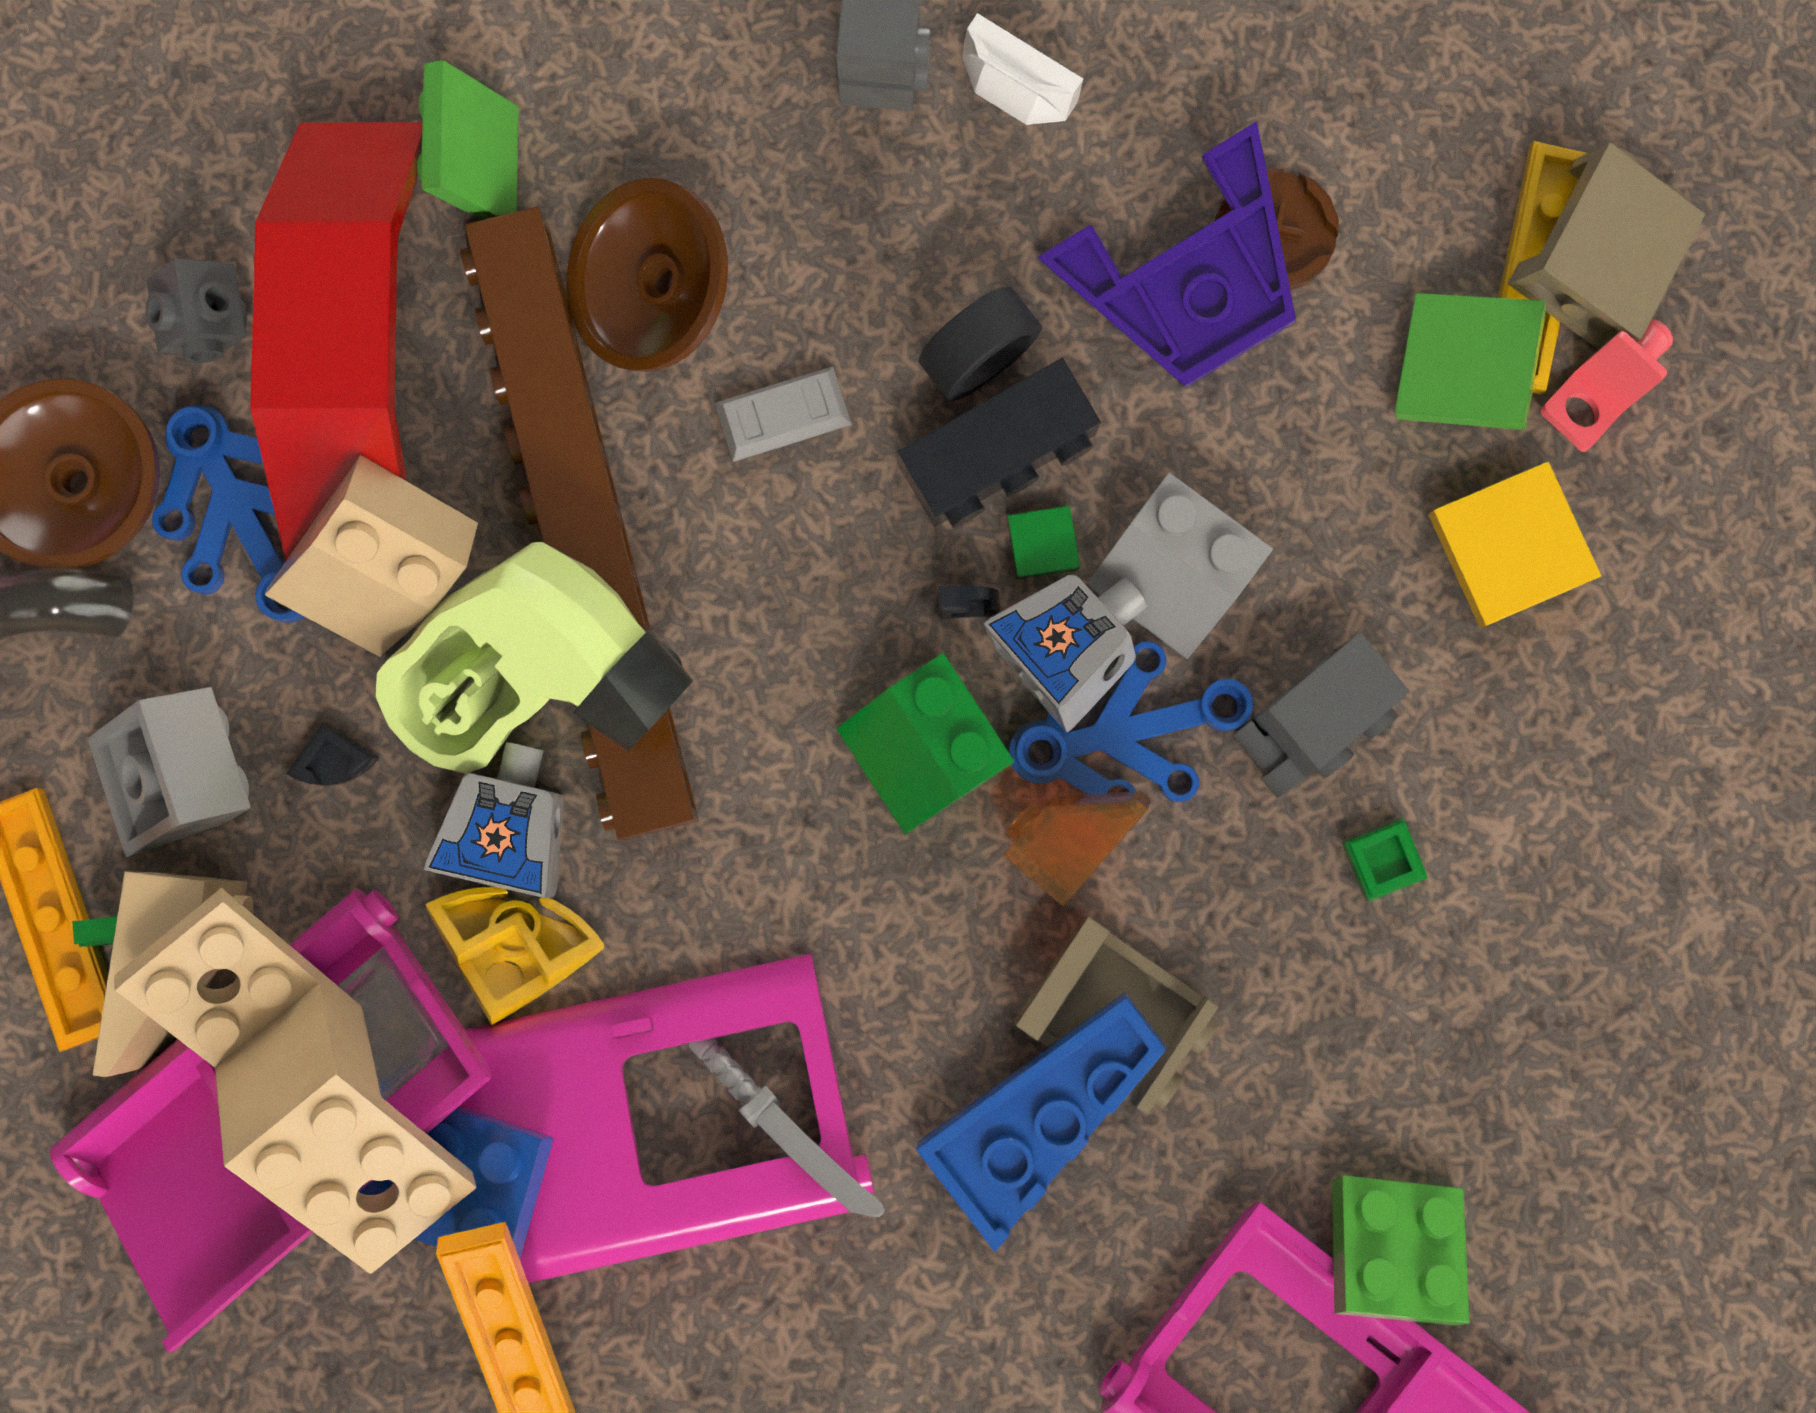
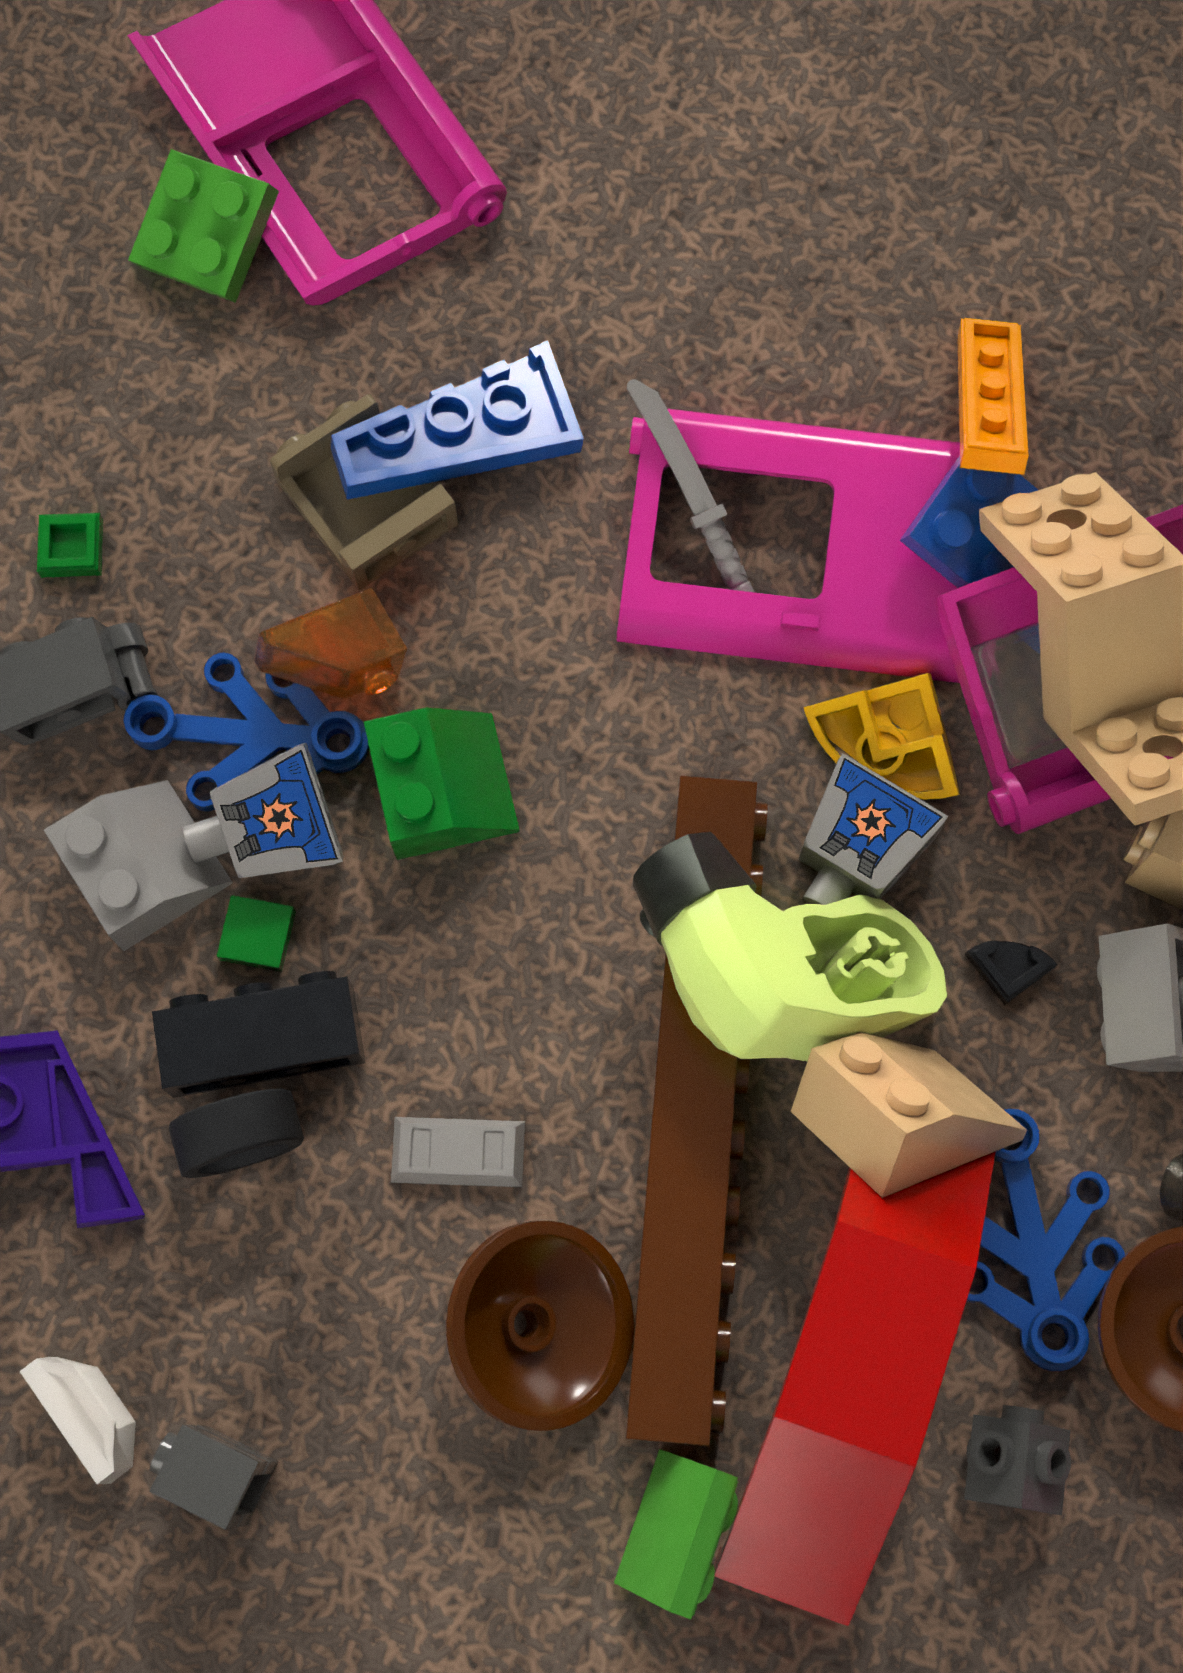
camera: 155 degrees left, 10 degrees down
(955, 601) = (356, 899): black tile -> none

